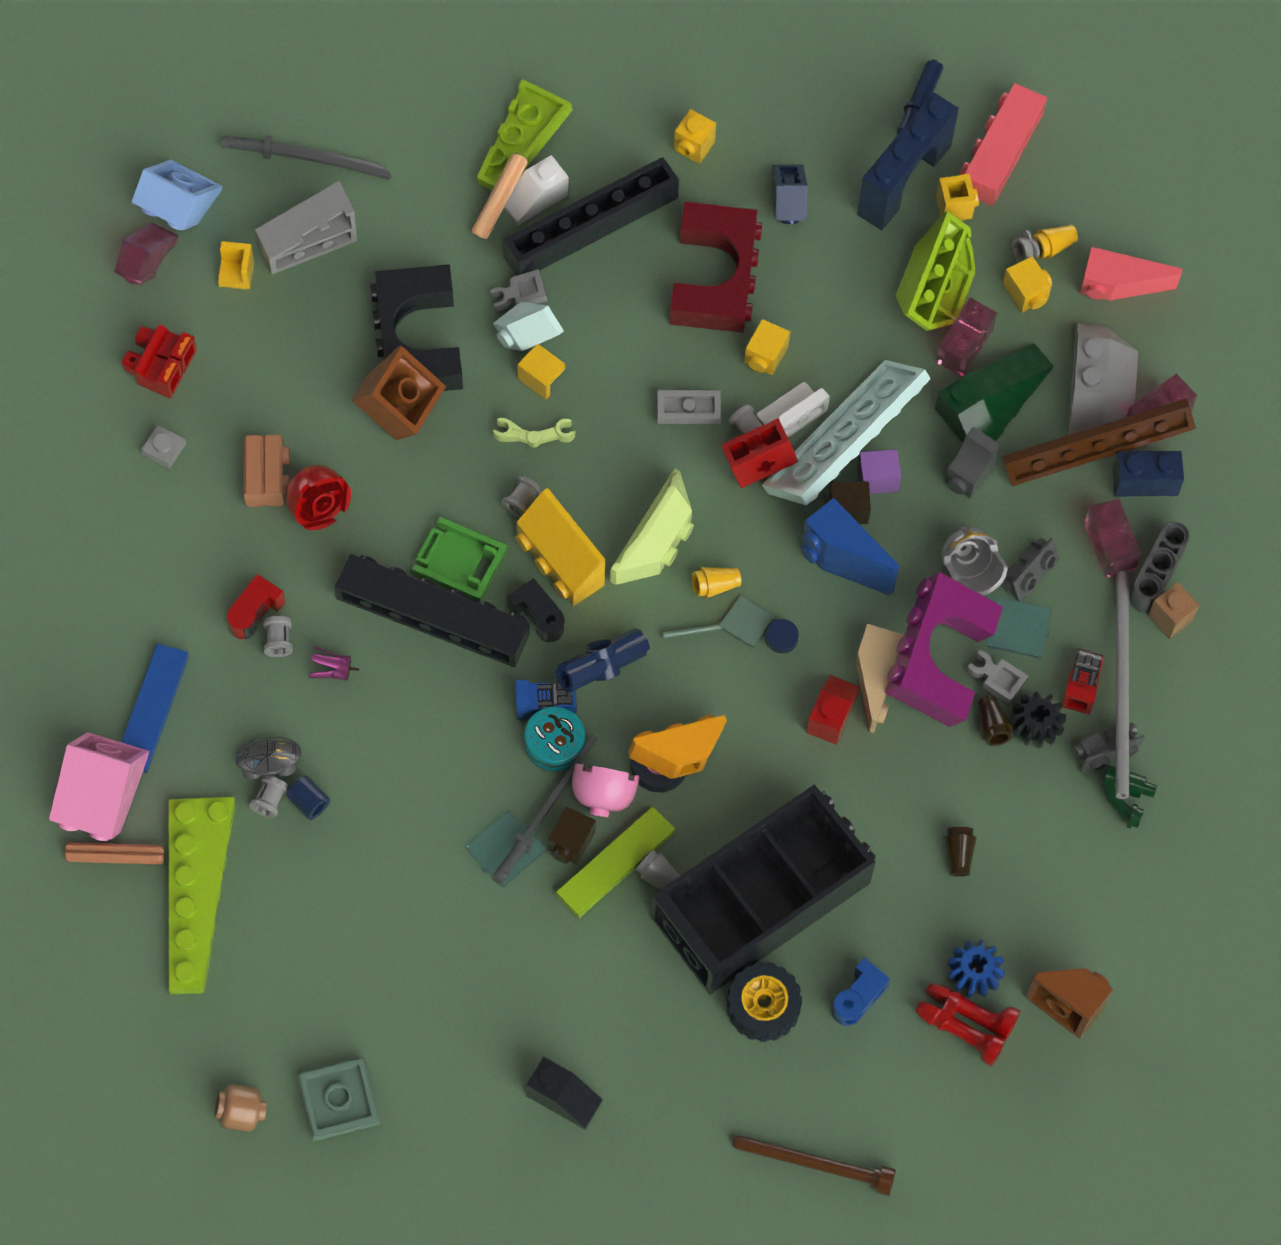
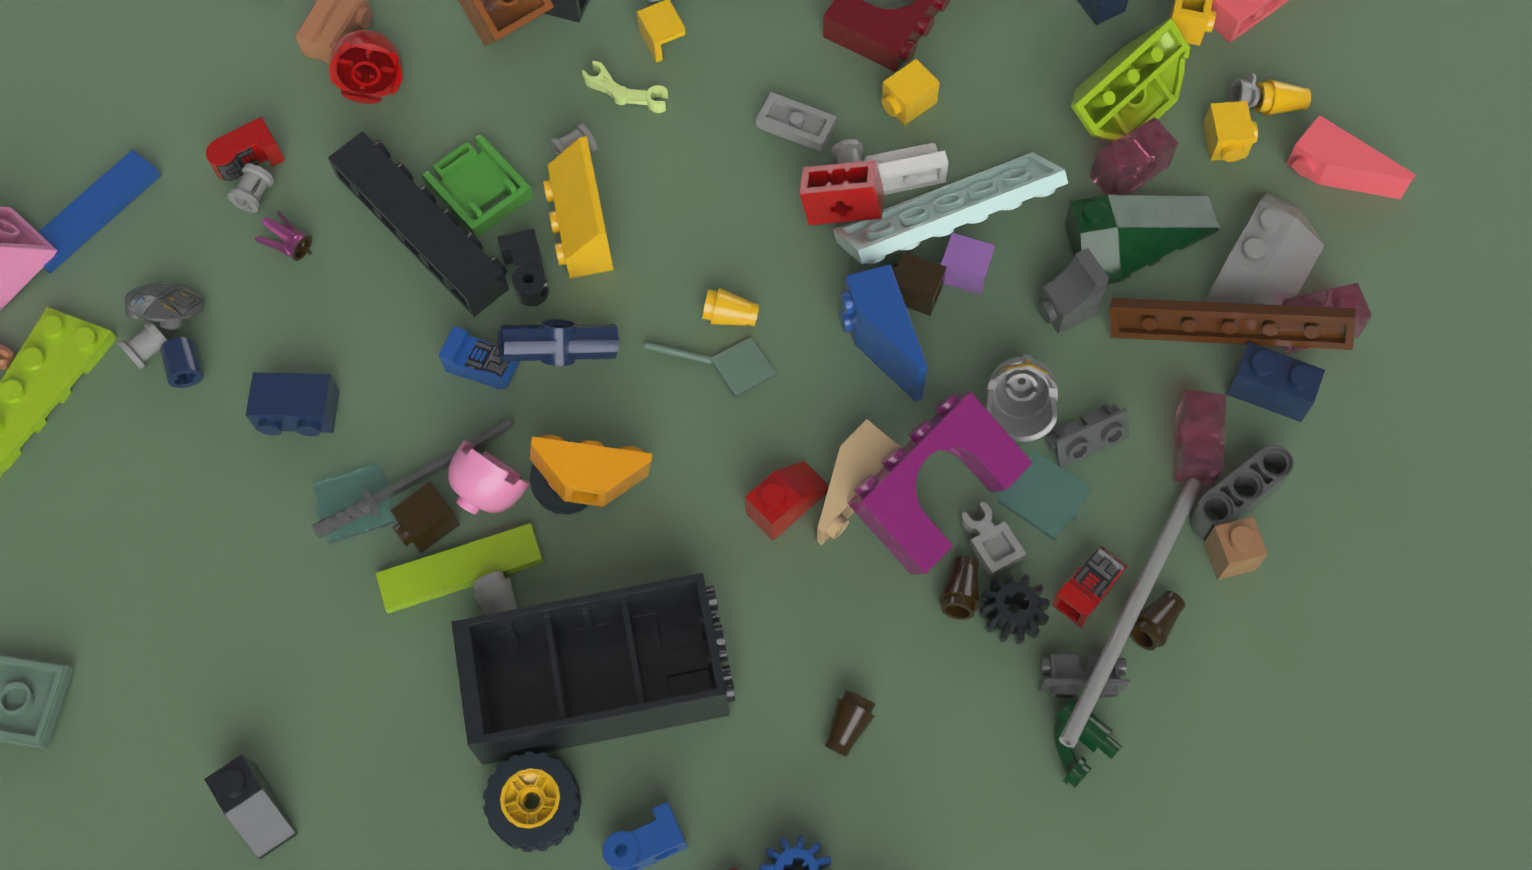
camera: 30 degrees right, 0 degrees up
(417, 792) = (292, 403): none -> dark blue brick
(554, 738) = (466, 404): teal head -> none
(657, 534) = (690, 234): yellowish green wedge -> none
(782, 636) = (772, 397): dark blue tile -> none
(1142, 686) = (1157, 621): none -> dark brown cone

